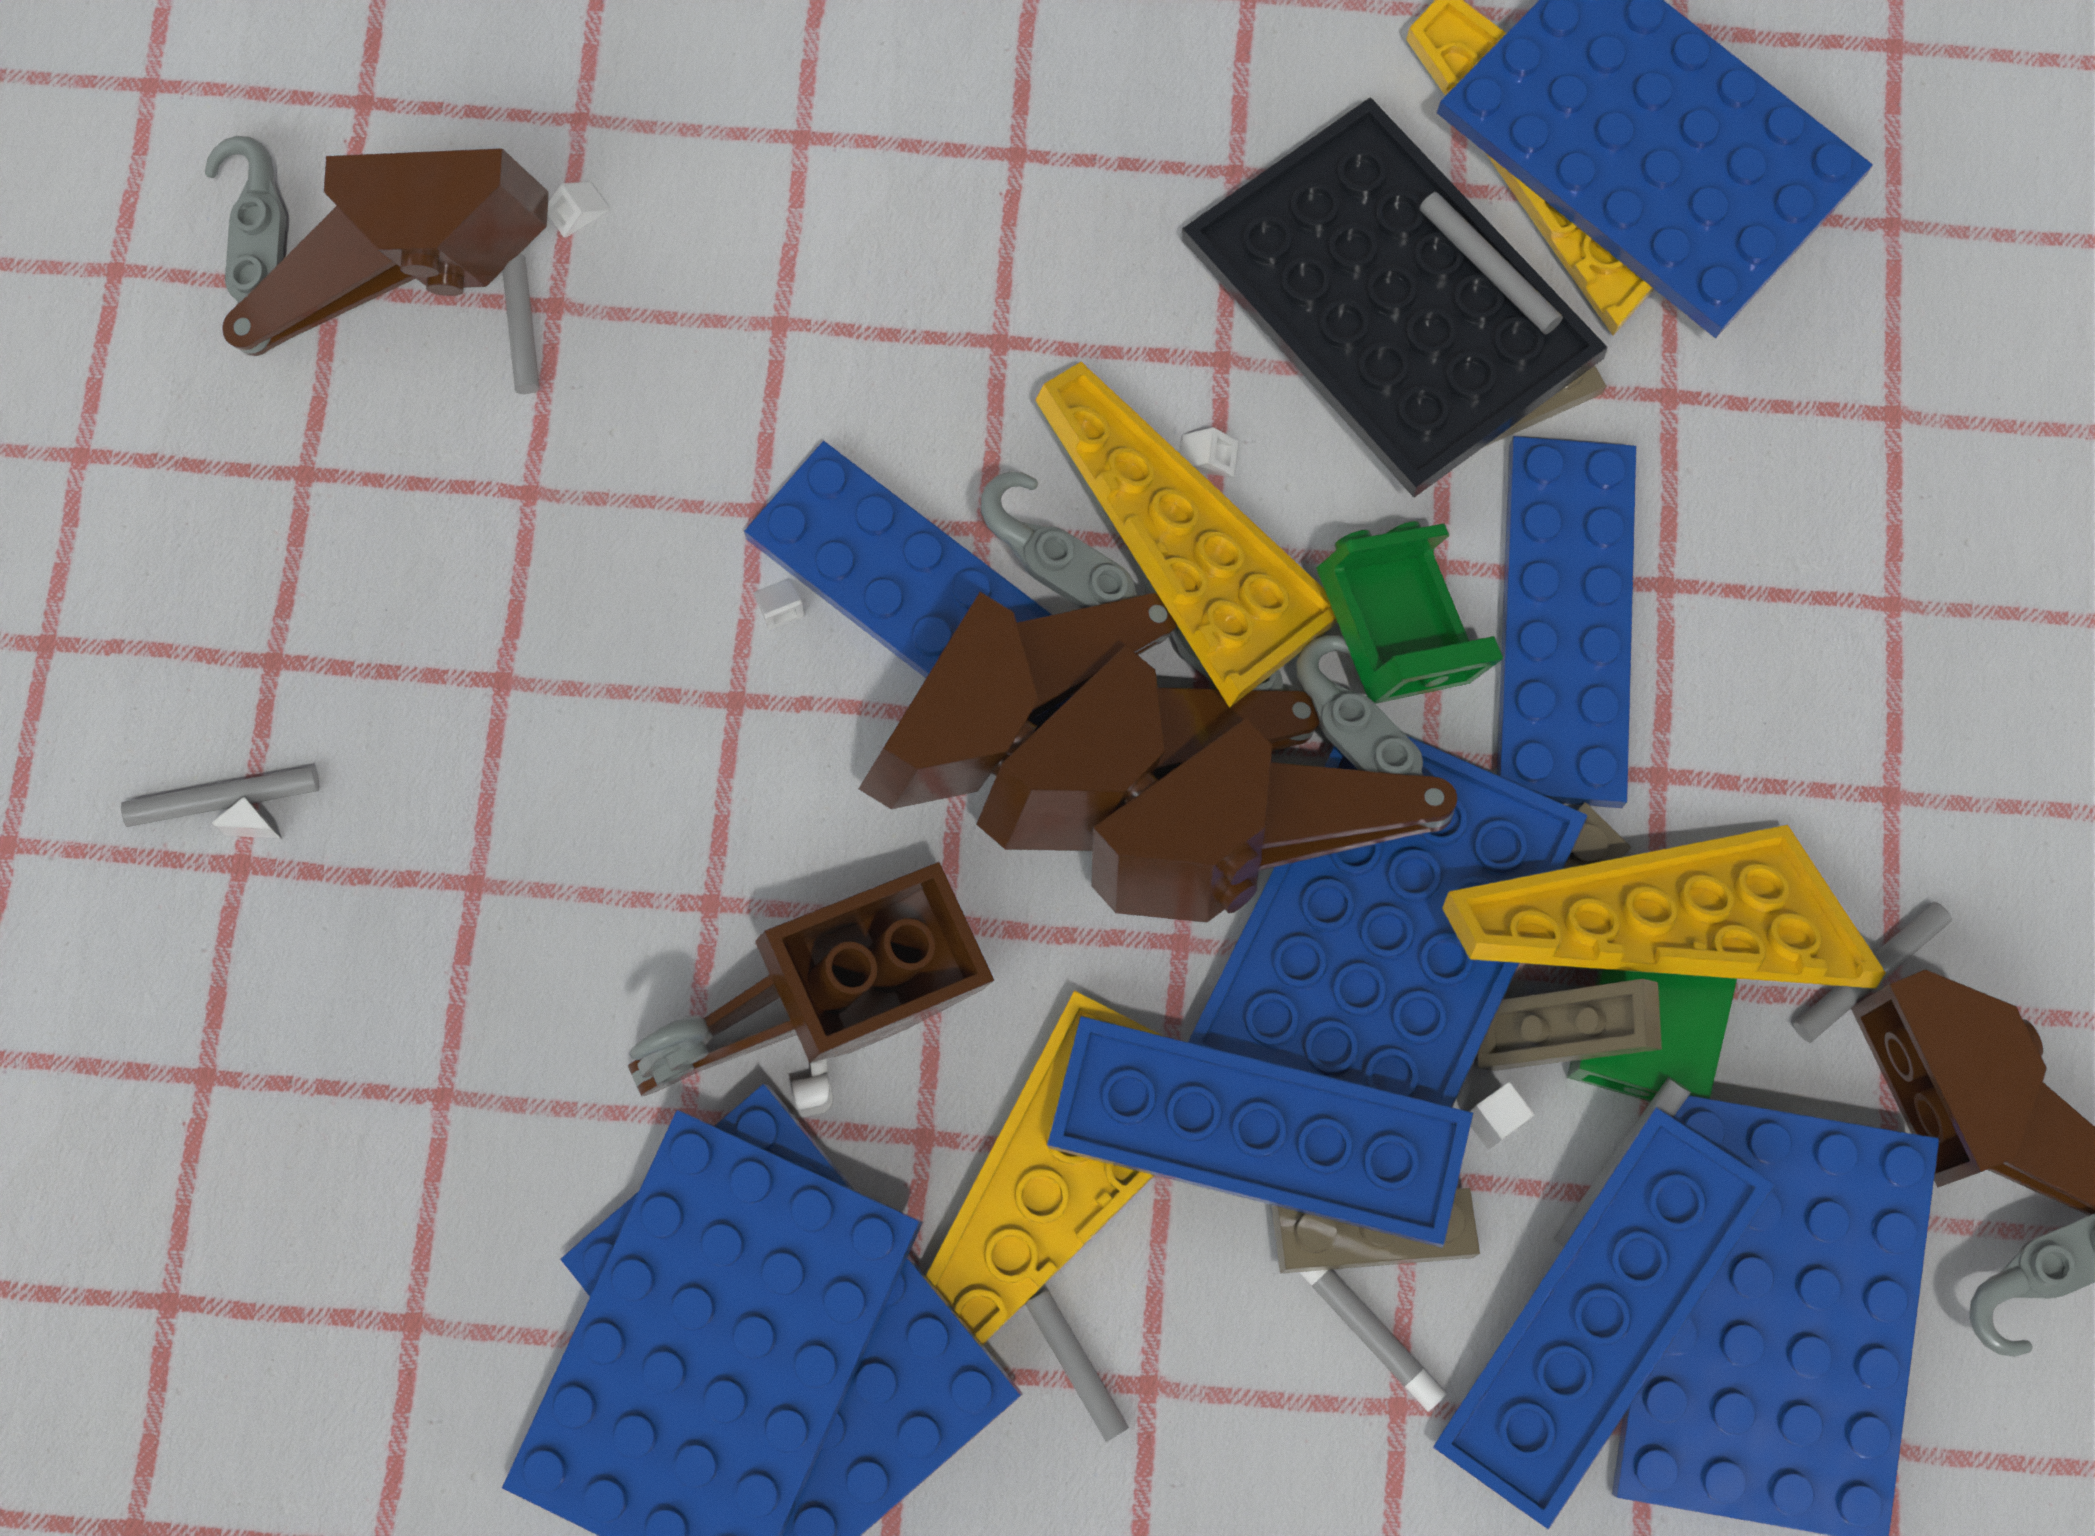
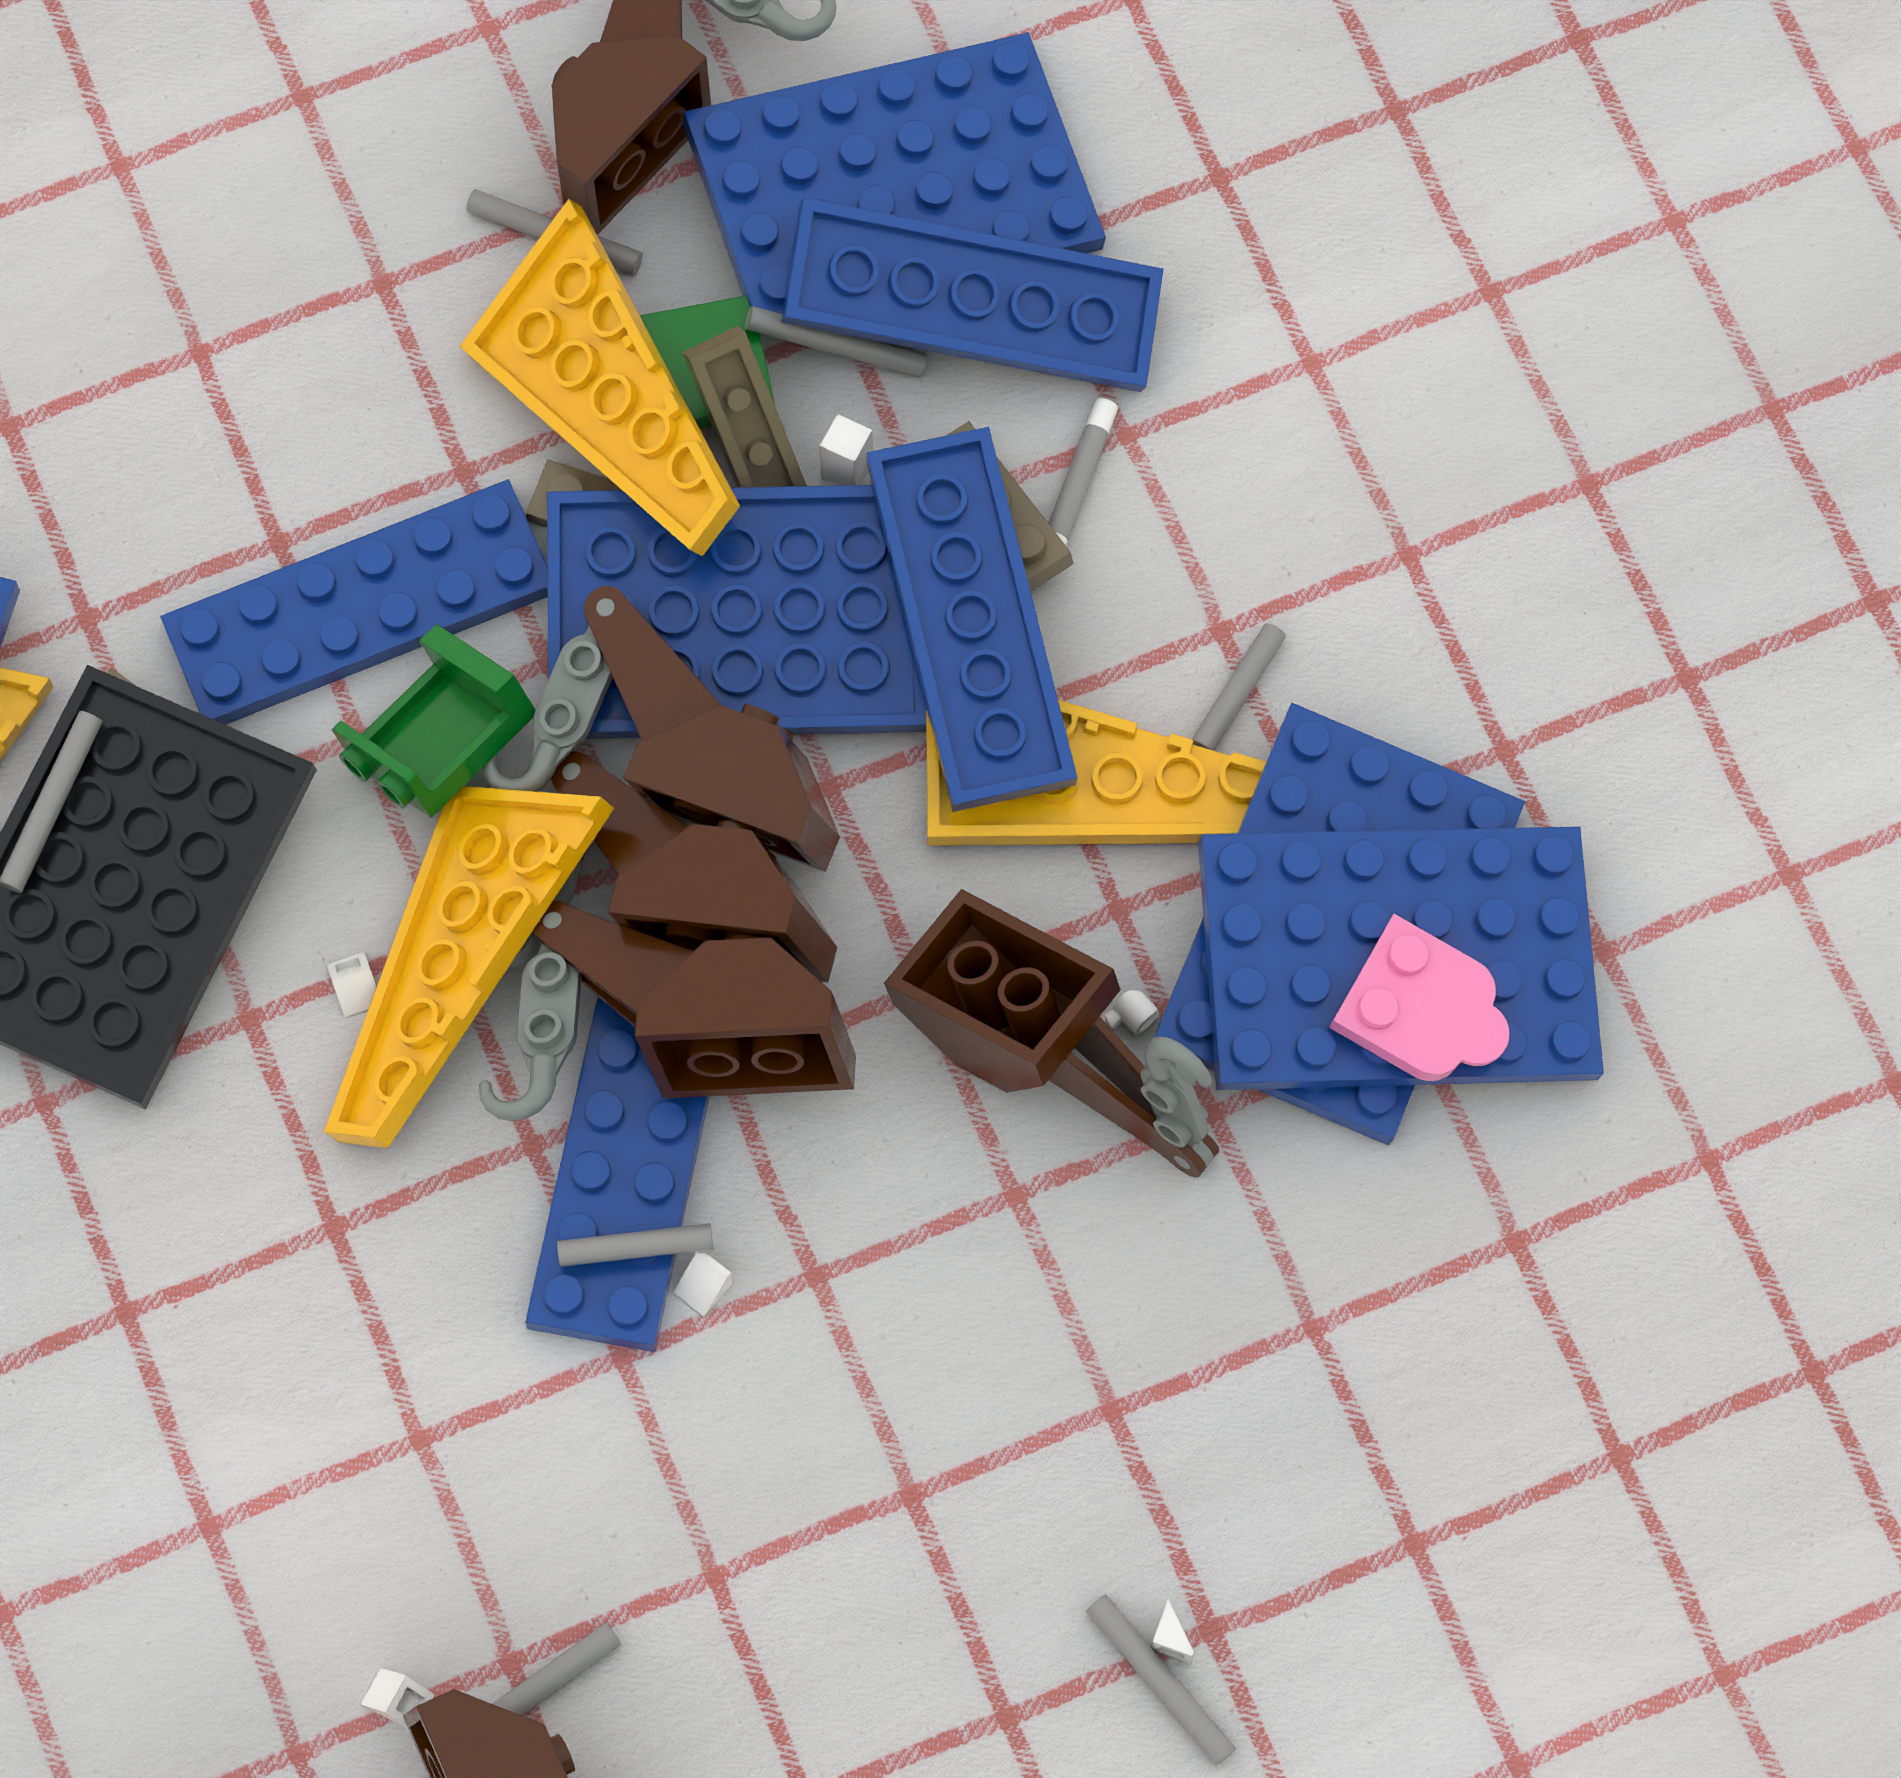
camera: 115 degrees left, 5 degrees down
(641, 1337) = (1423, 1005): none -> bright pink plate
(830, 549) = (635, 1245): none -> light grey piece

